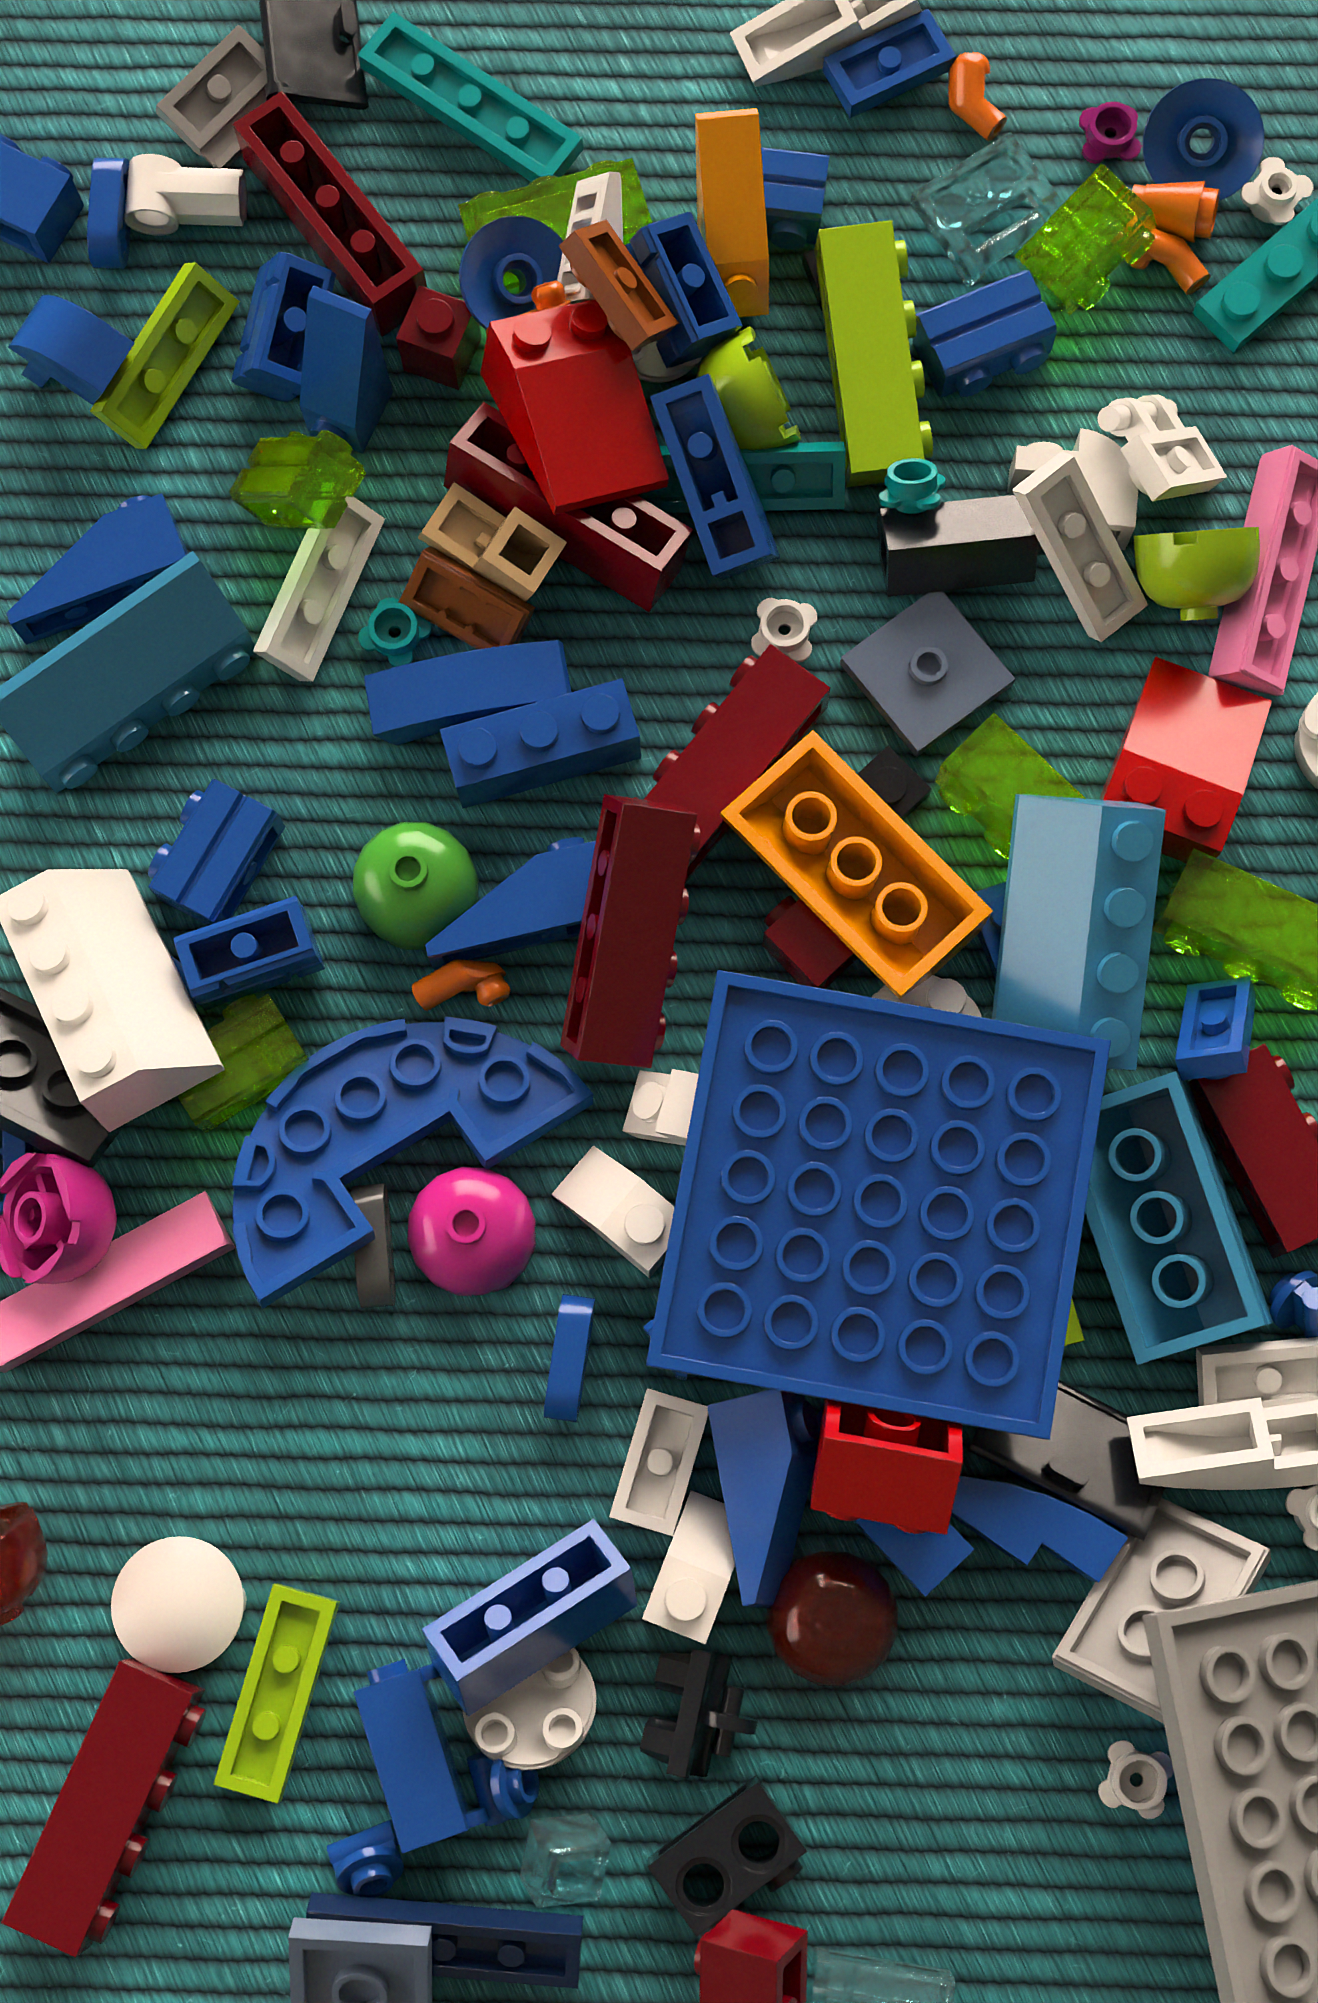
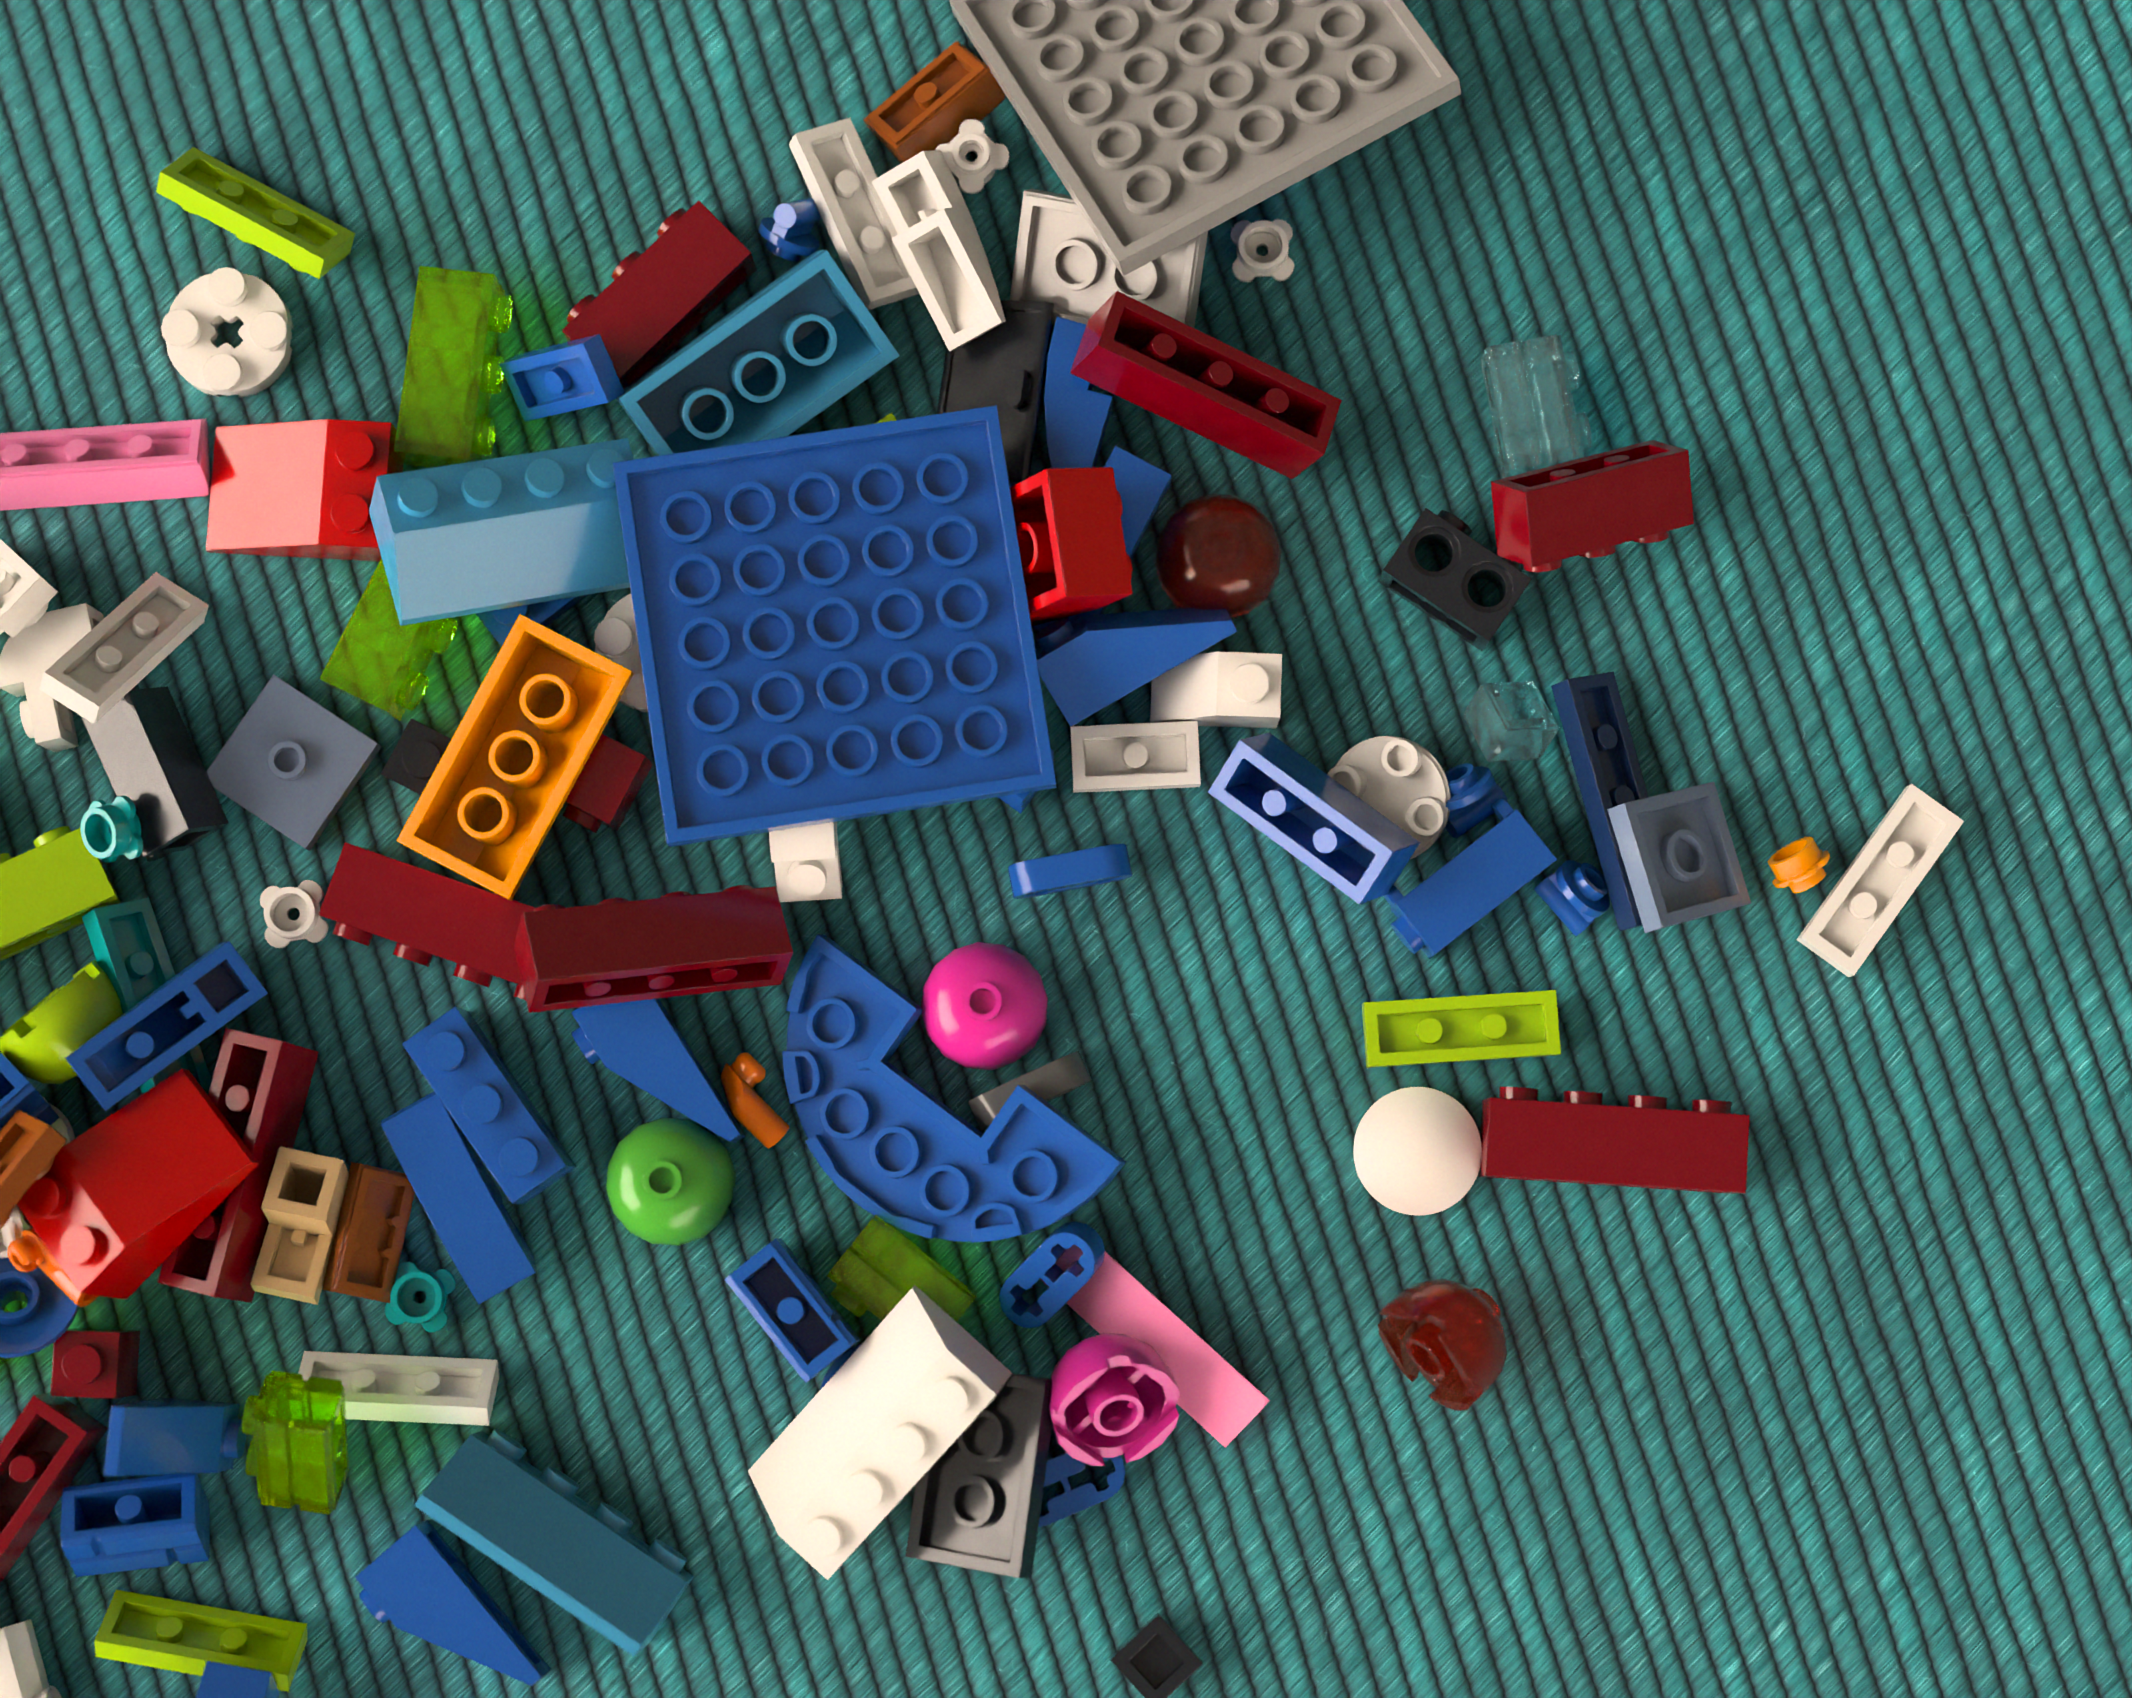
camera: 110 degrees left, 5 degrees up
(179, 1210) = (1061, 1283): none -> blue beam
(215, 853) = (705, 1385): blue brick -> none
(619, 1209) = (916, 872): white slope -> none
(706, 1715) = (1371, 646): black hips -> none
(1005, 1665) = (1205, 385): none -> dark red brick
(1197, 568) = (105, 533): lime cylinder -> none

